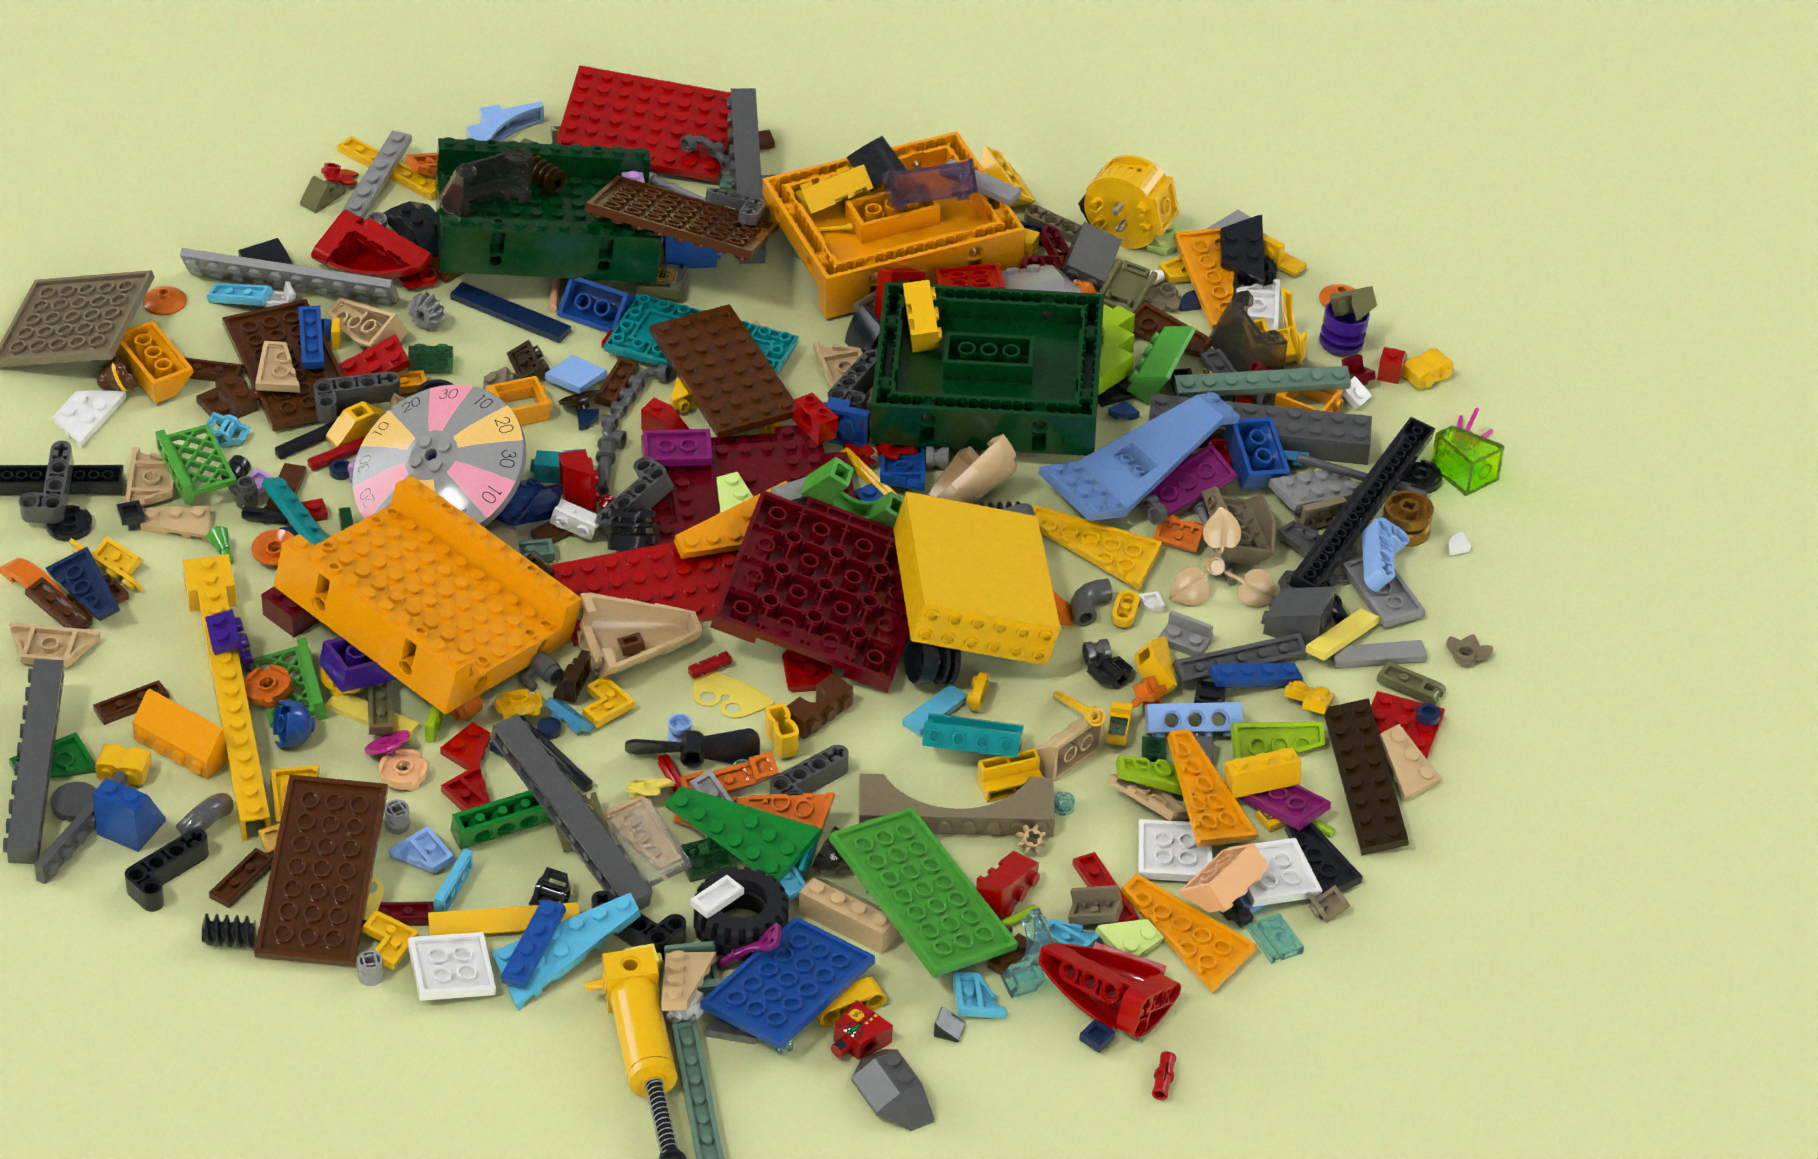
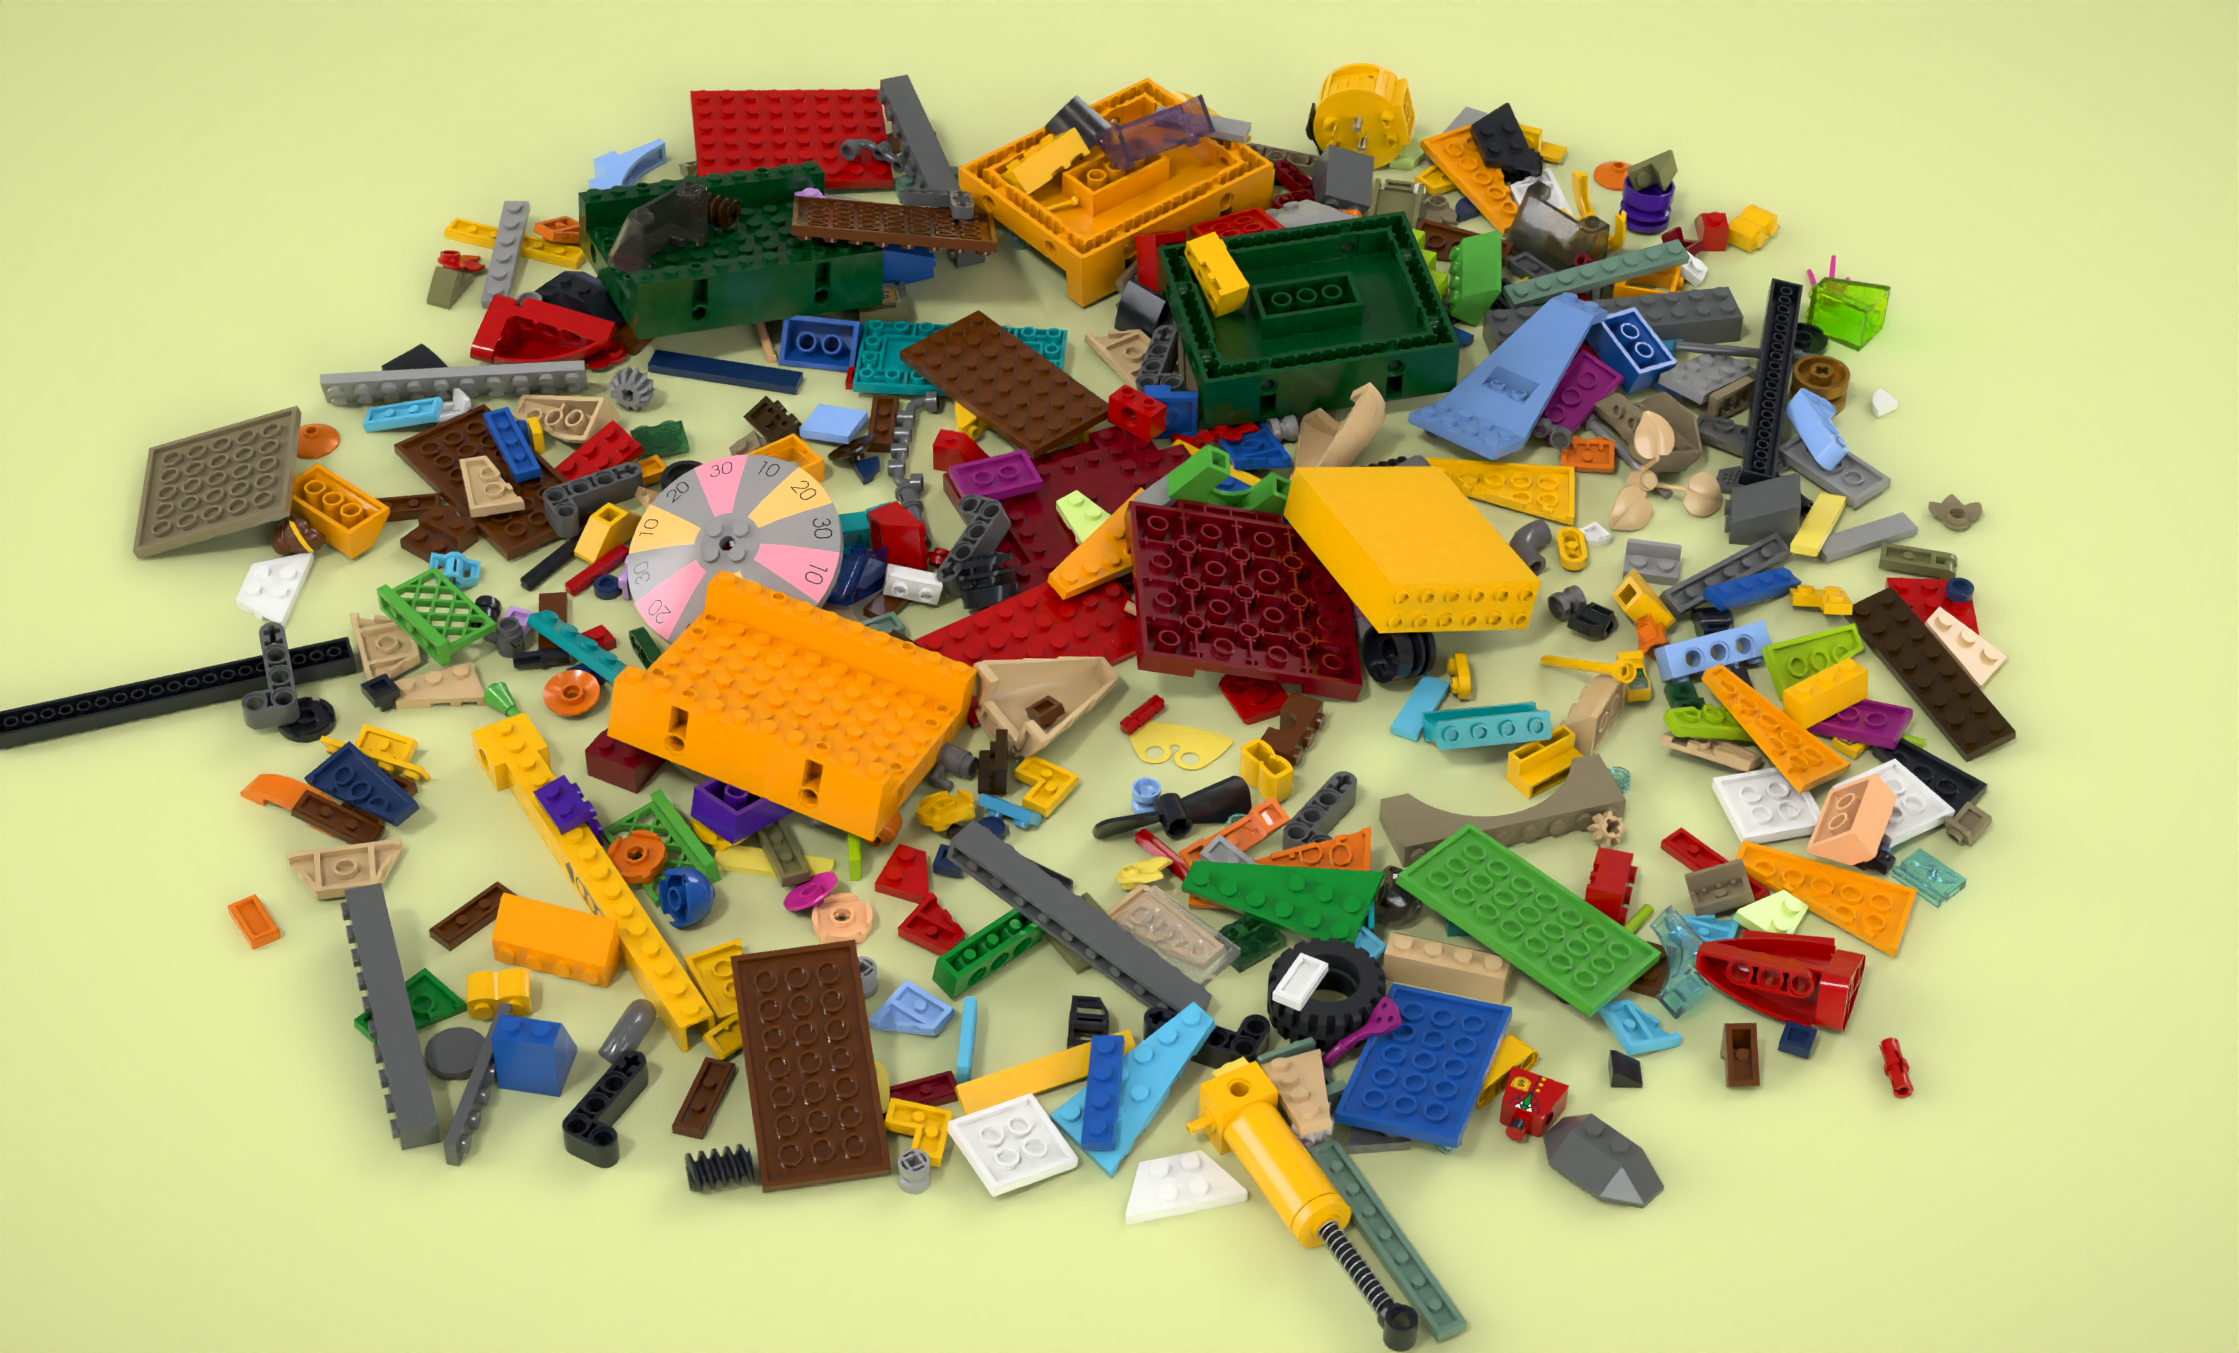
camera: 15 degrees left, 0 degrees up
(564, 1028) = (1180, 1186): none -> white wing
(1042, 1035) = (1741, 1054): none -> reddish brown slope

